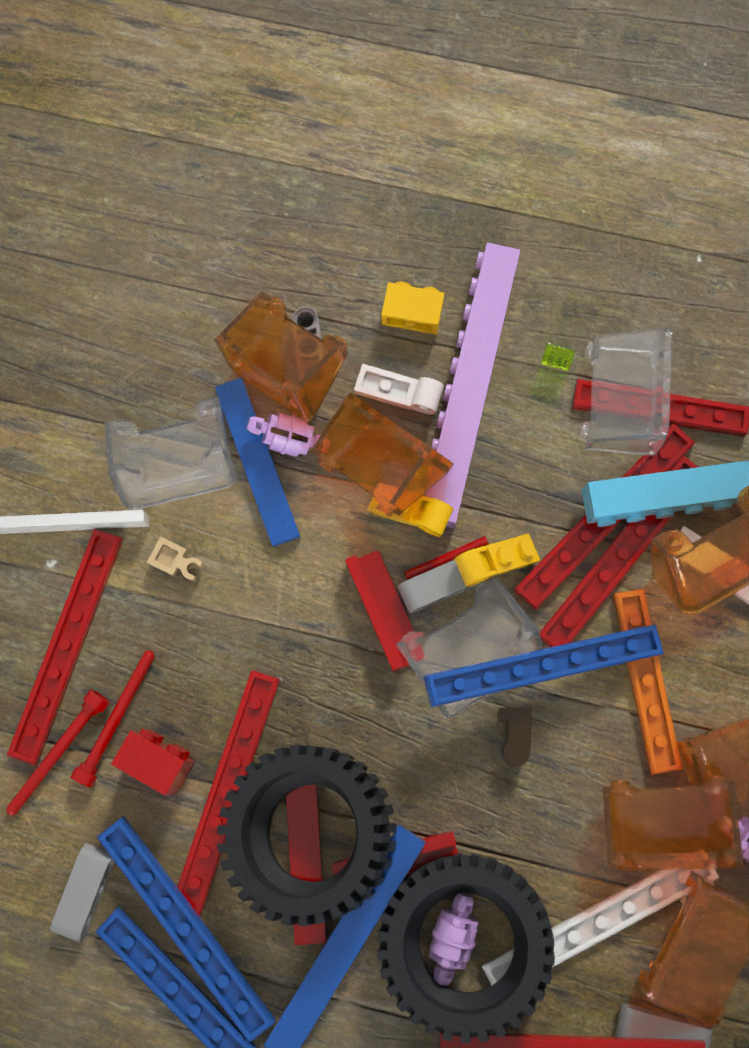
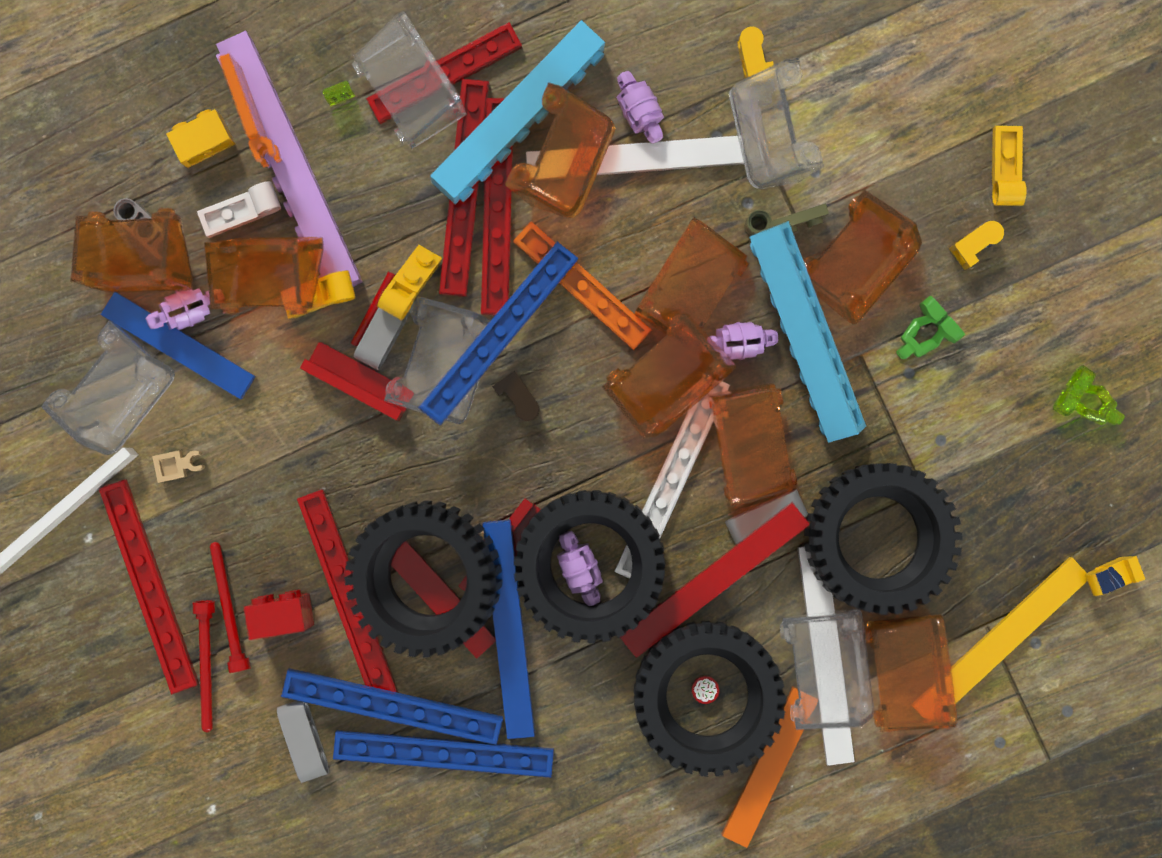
camera: 45 degrees left, 10 degrees up
(463, 346) = (248, 112): none -> orange tile

